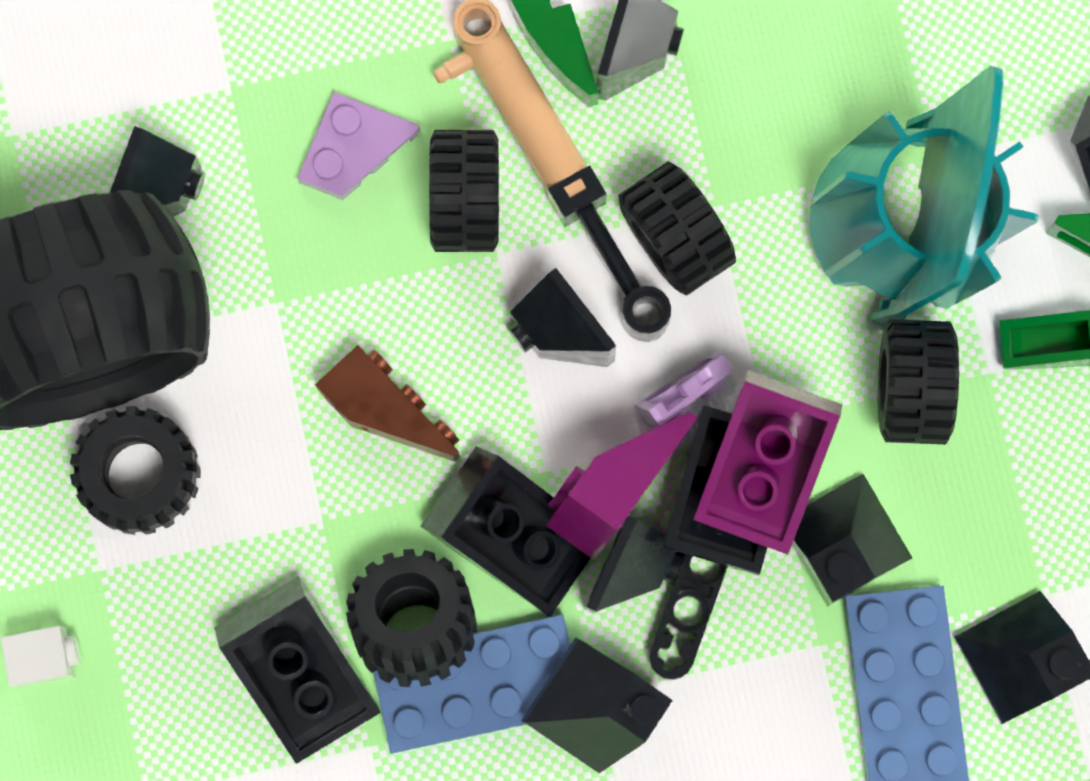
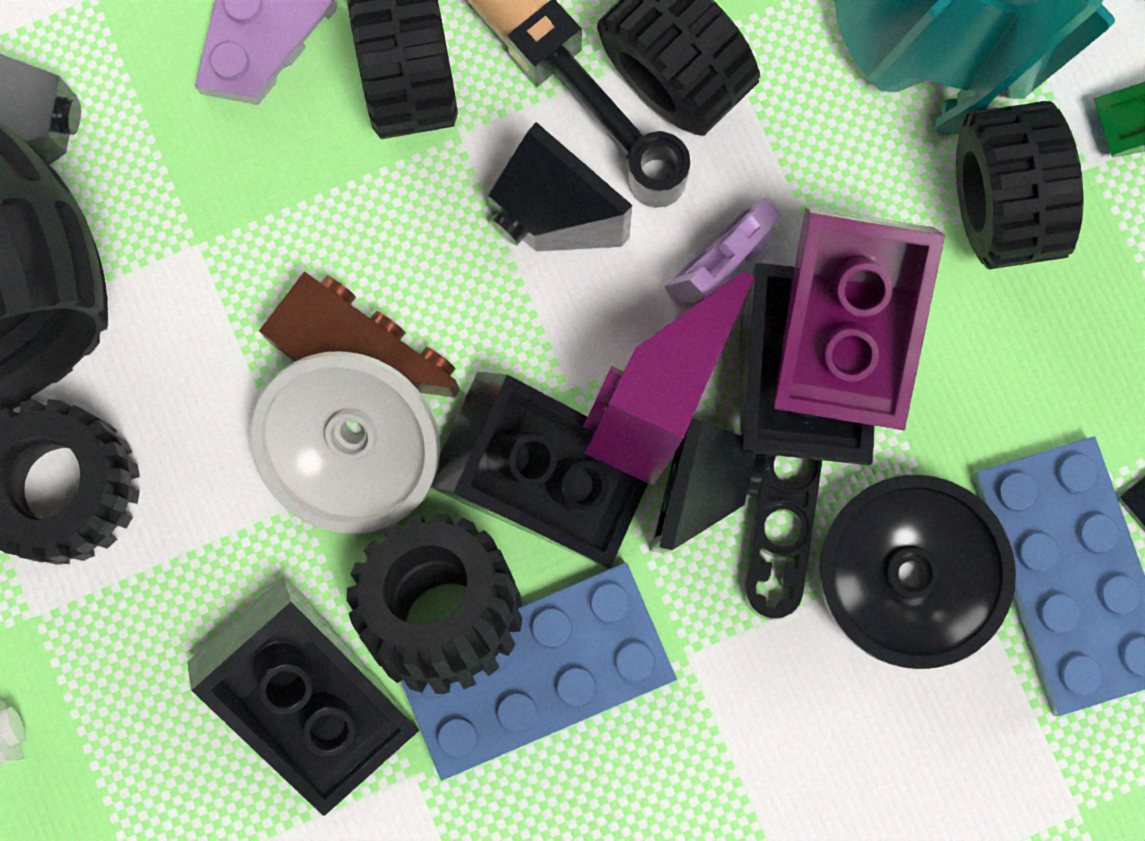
camera: 10 degrees left, 0 degrees up
(351, 504) = (323, 467): none -> white dish
(595, 707) = (693, 673): black slope -> none
(807, 637) = (960, 561): none -> black dish
(848, 540) = (967, 405): black slope -> none

